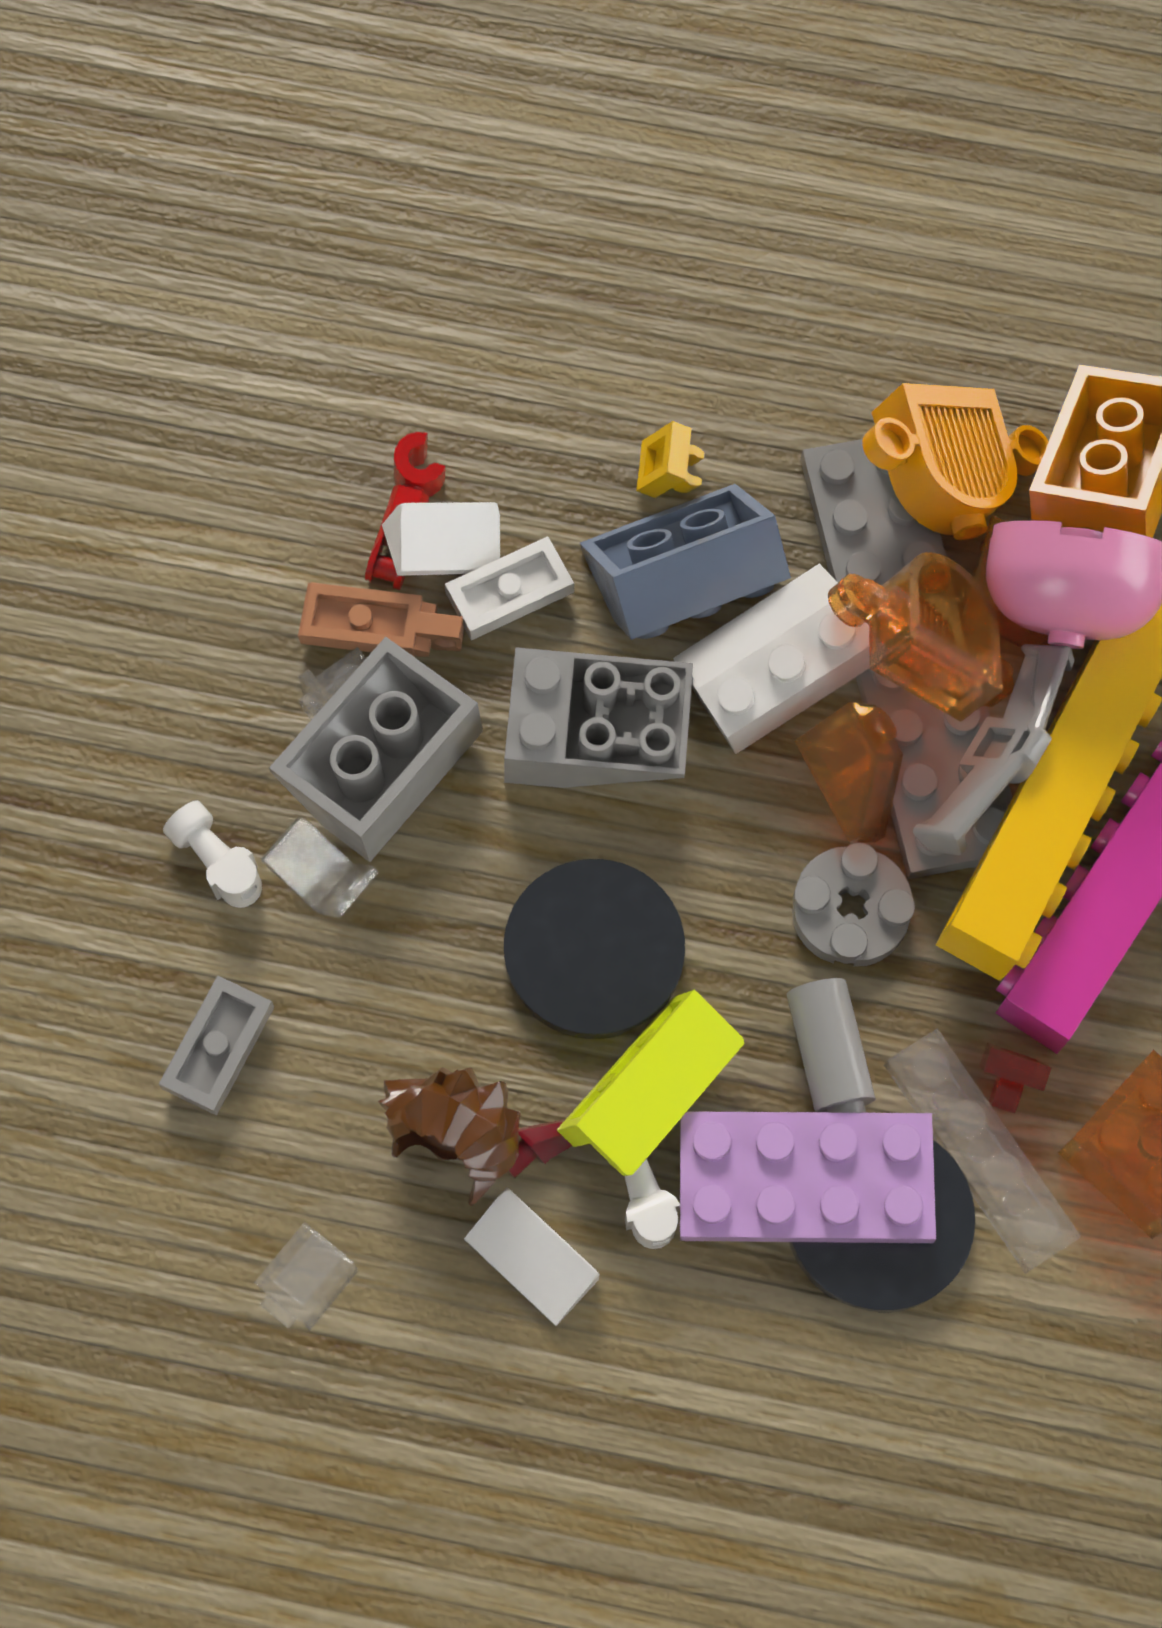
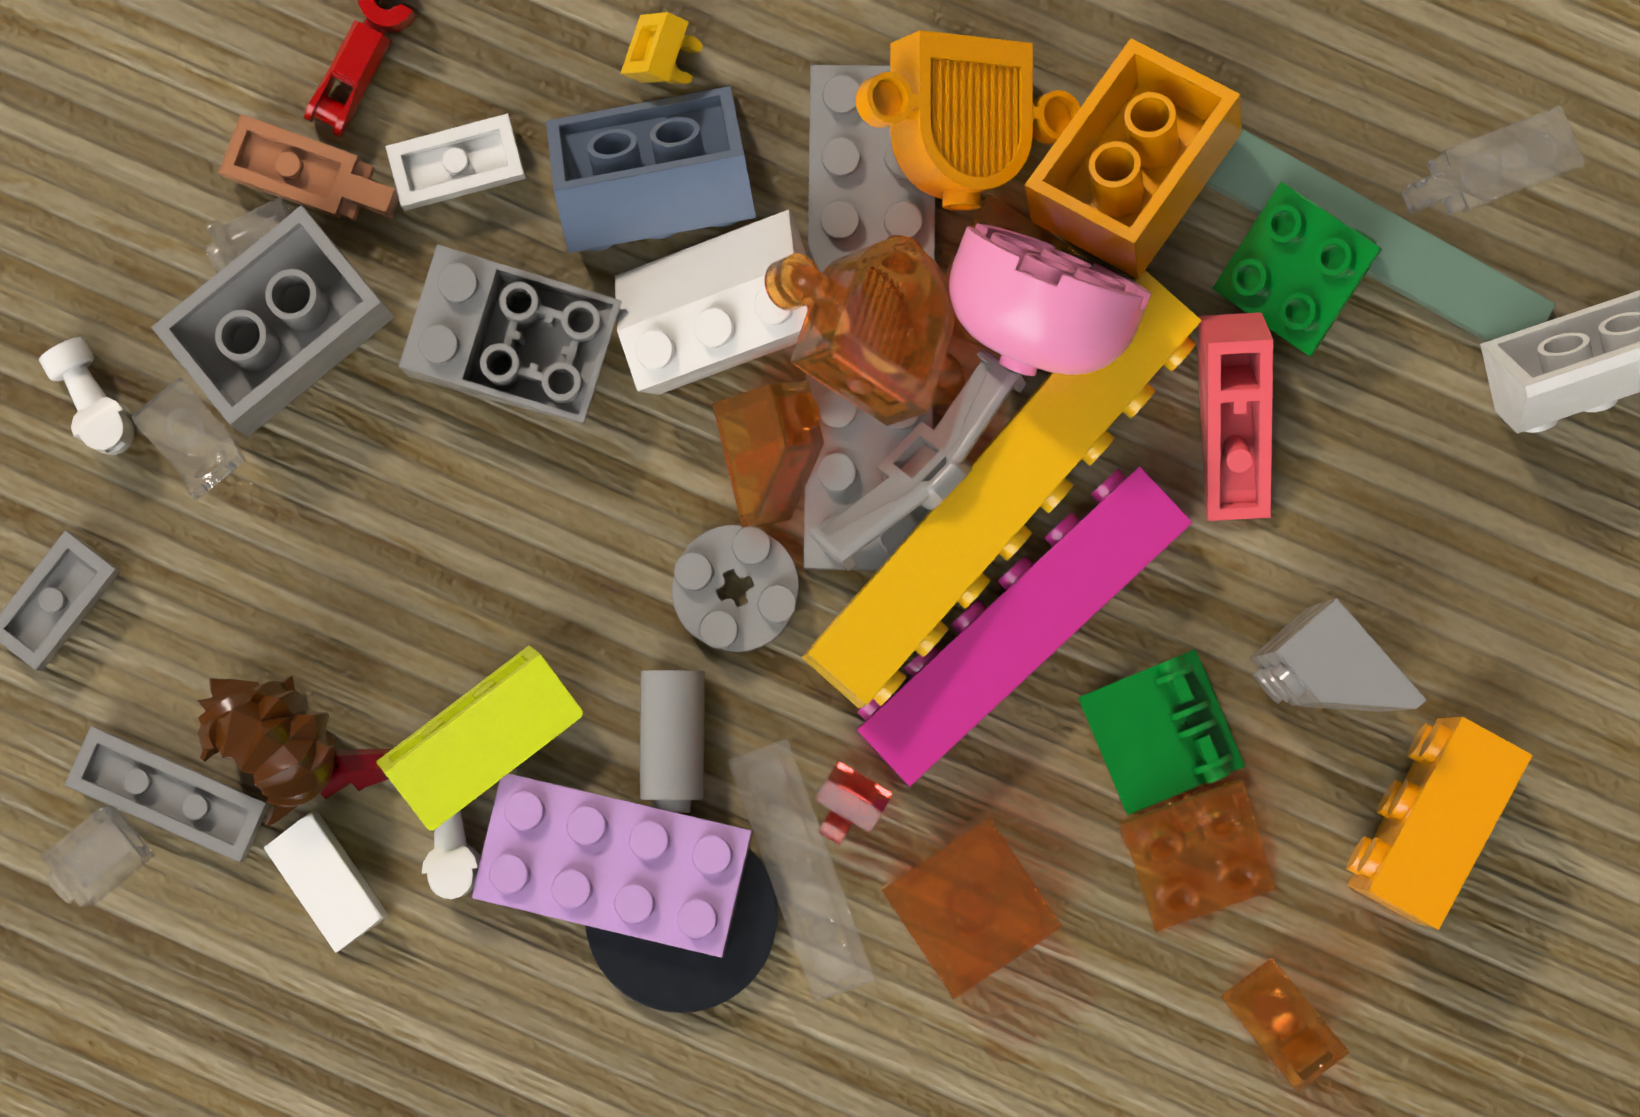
camera: 20 degrees right, 15 degrees up
(362, 1203) = (167, 794): none -> light grey plate
(443, 537) = (393, 96): white slope -> none
(594, 948) = (458, 577): black tile -> none

